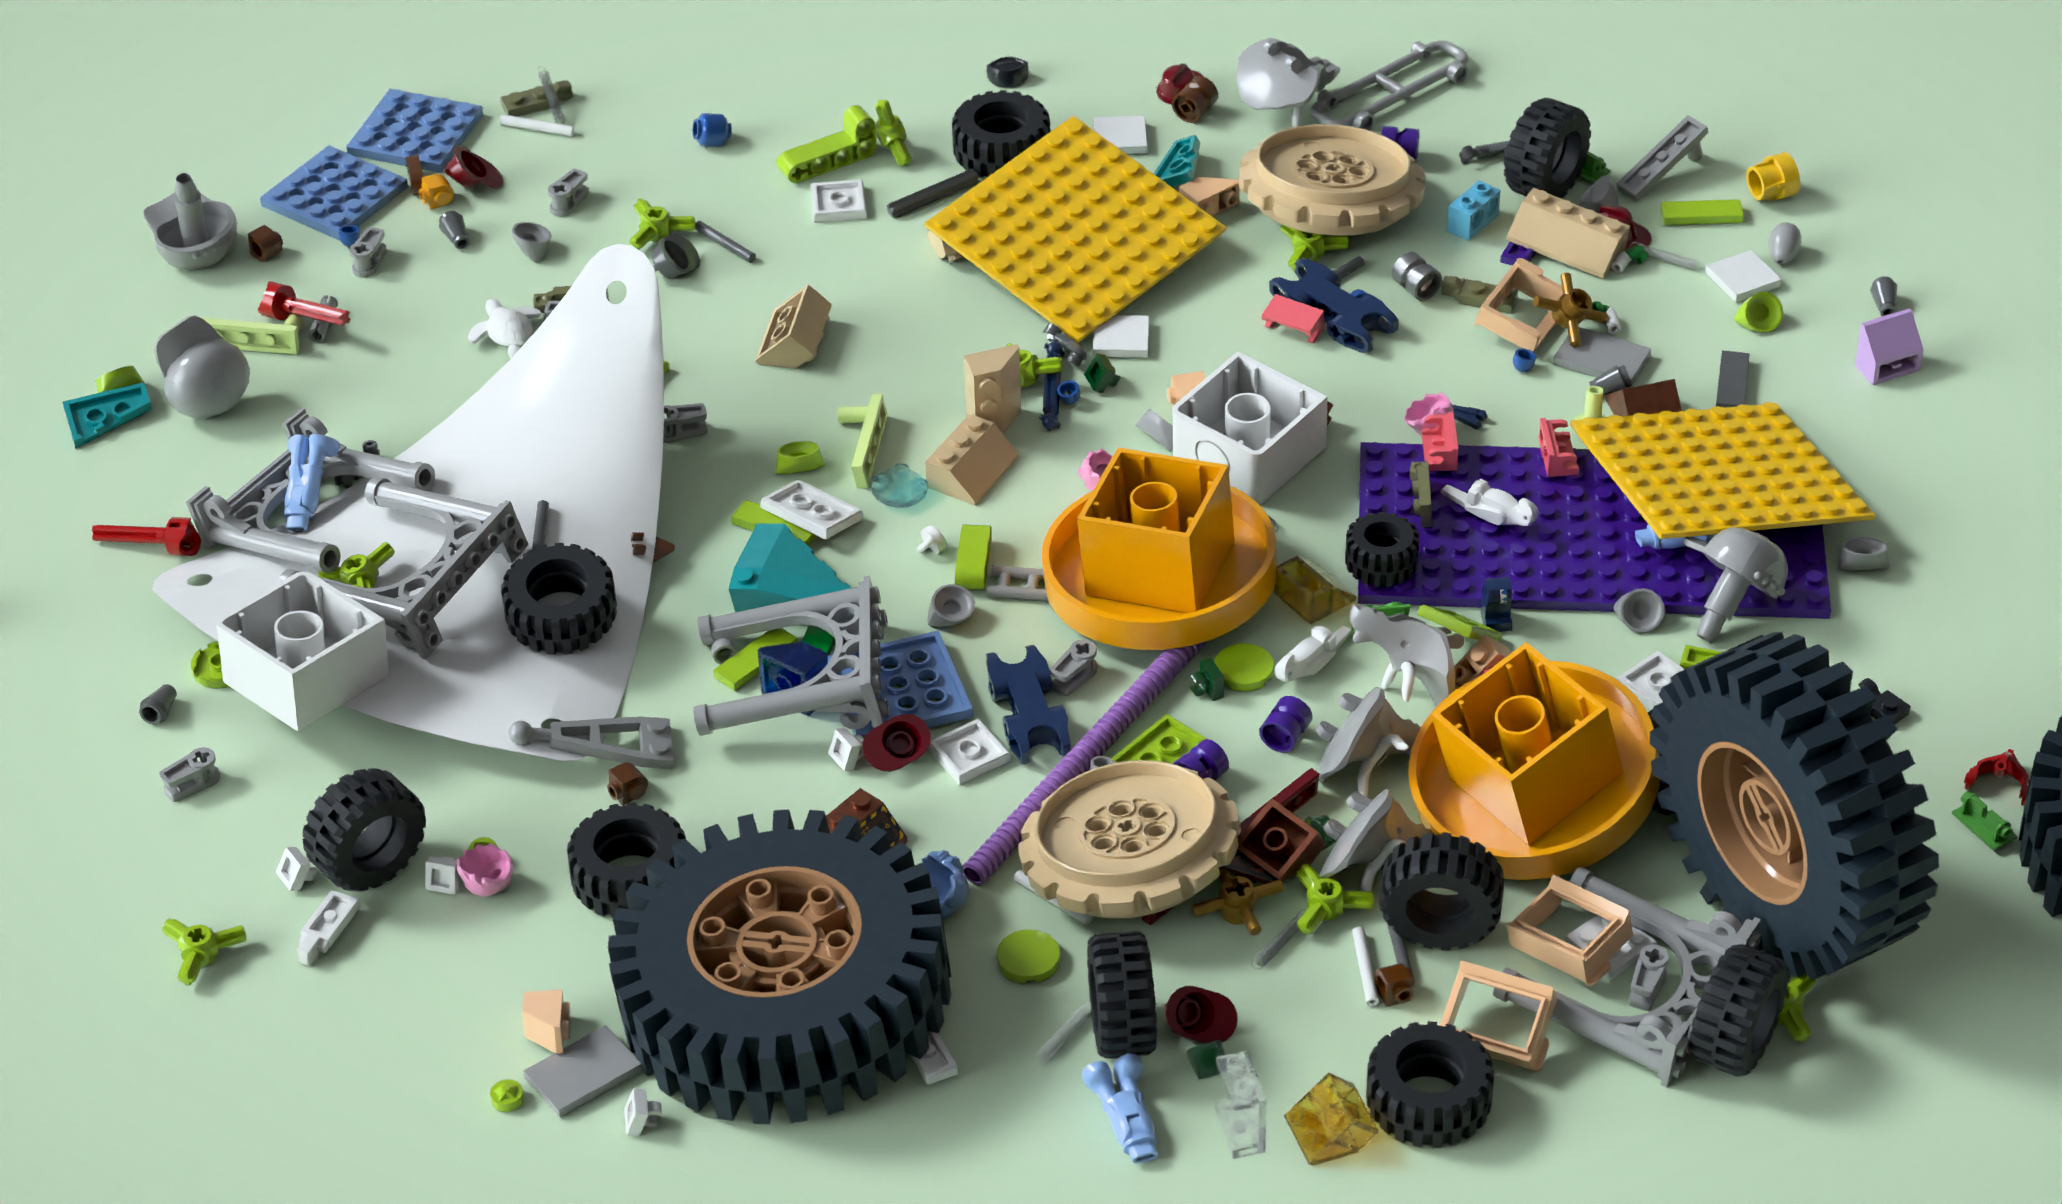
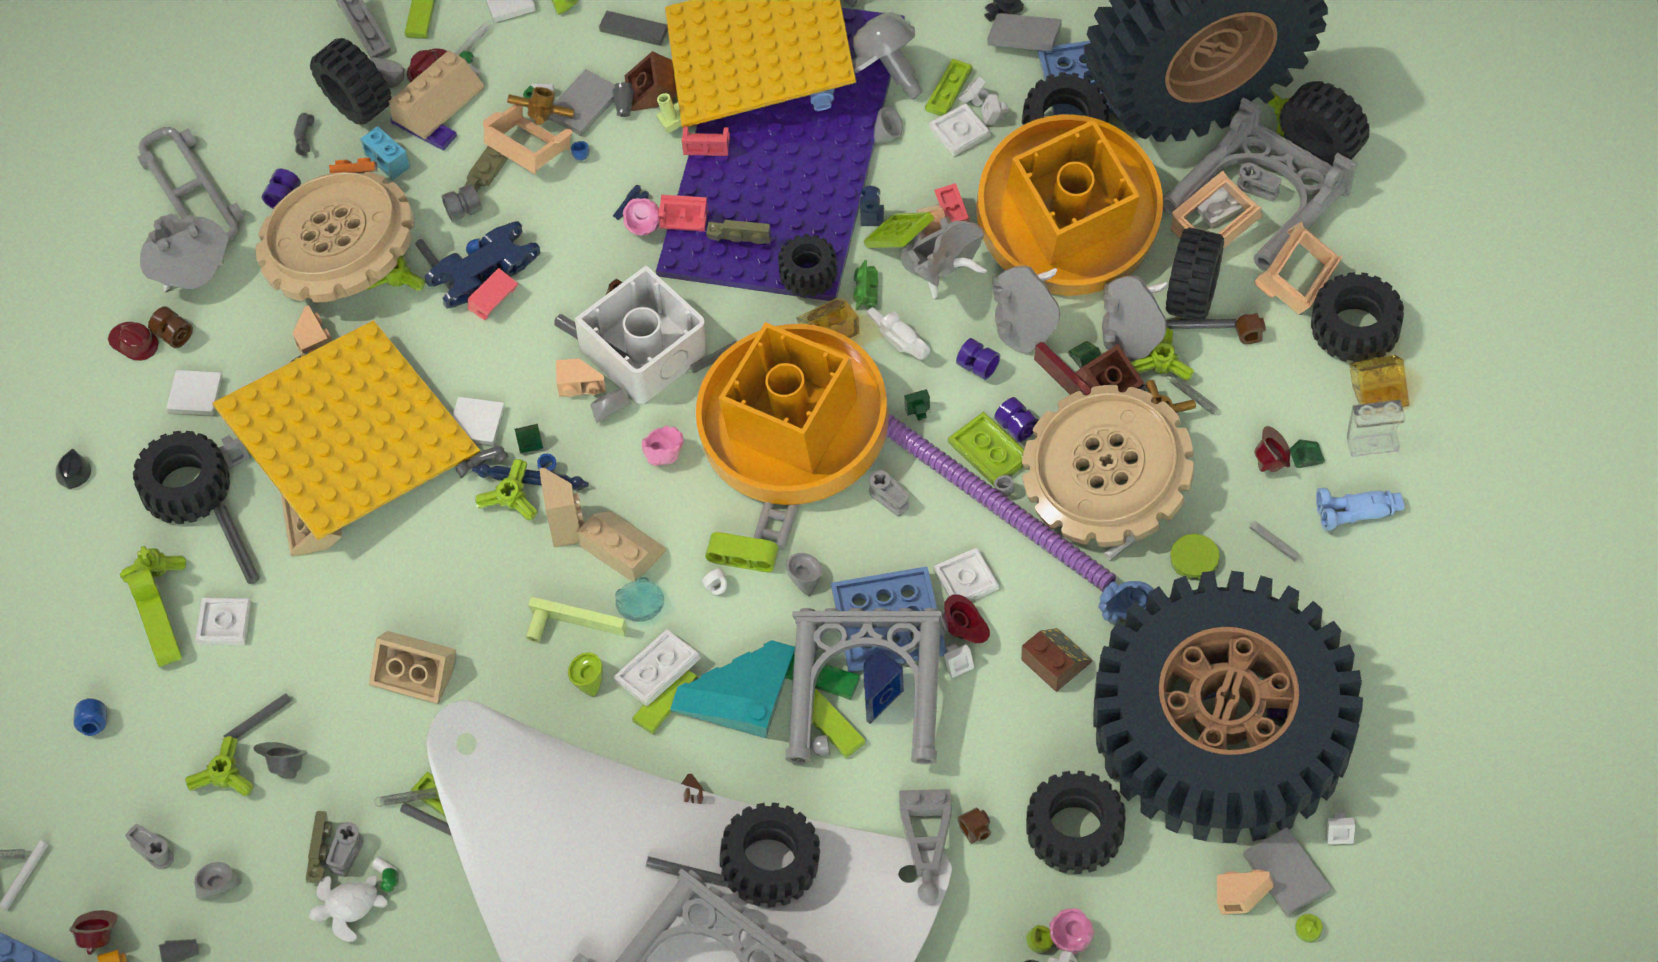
camera: 80 degrees left, 15 degrees up
(1031, 718) = (937, 527): dark blue piece -> none
(1122, 994) = (1279, 482): black tyre -> none
(1179, 162) = (259, 350): teal wing -> none
(1245, 666) = (901, 379): lime tile -> none
(1365, 966) = (1226, 346): white piece -> none
(1437, 185) = (363, 165): none -> orange plate
(1493, 504) = (766, 189): white animal -> none

